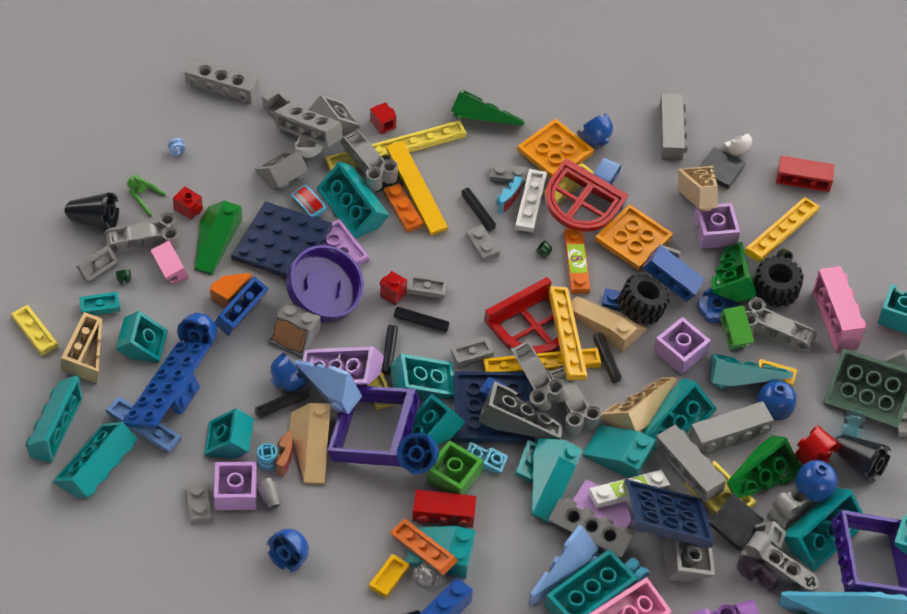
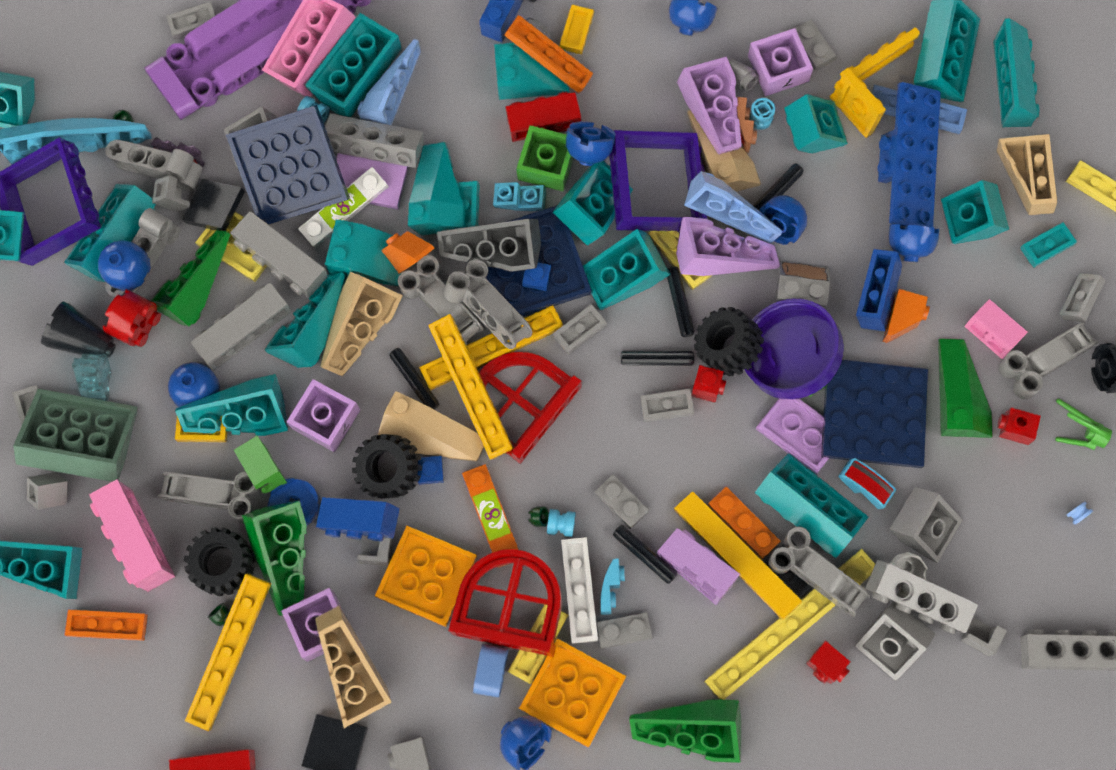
camera: 170 degrees right, 20 degrees up
(123, 274) = (1042, 295): dark green hinge -> none
(166, 459) = (852, 93): none -> yellow bracket
(303, 472) = (713, 101): none -> lavender wedge
(380, 295) = (739, 352): none -> black tyre
(444, 186) = (698, 565): none -> lavender wedge
(529, 238) = (562, 523): none -> medium azure wheel
(587, 430) = (406, 250): none -> orange slope
(867, 272) = (106, 625): none -> orange plate

